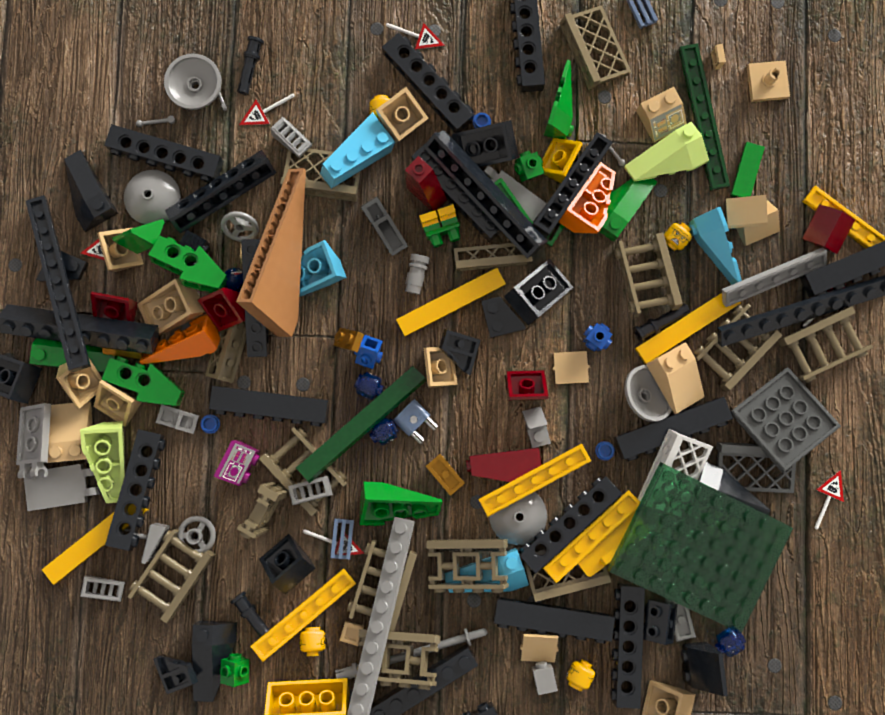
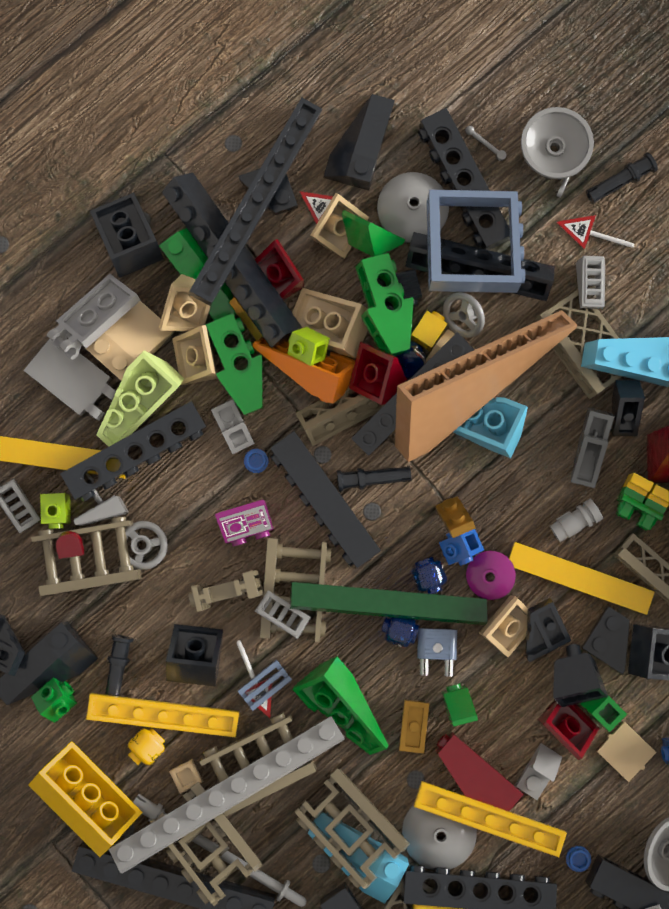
camera: 50 degrees right, 0 degrees up
(126, 567) = (55, 510): none -> lime brick
(153, 578) = (69, 545): none -> dark red tile
(170, 331) = (308, 345): none -> lime brick
(223, 203) = (474, 283): none -> sand blue window
(229, 254) = (429, 330): none -> yellow brick
(277, 372) = (362, 478): none -> black pin
(380, 185) = (627, 407): none -> black slope
(408, 343) = (497, 564): none -> magenta dish
(455, 437) = (459, 704): none -> green slope
(503, 356) = (577, 678): none -> black torso
(528, 358) = (604, 712): none -> green slope

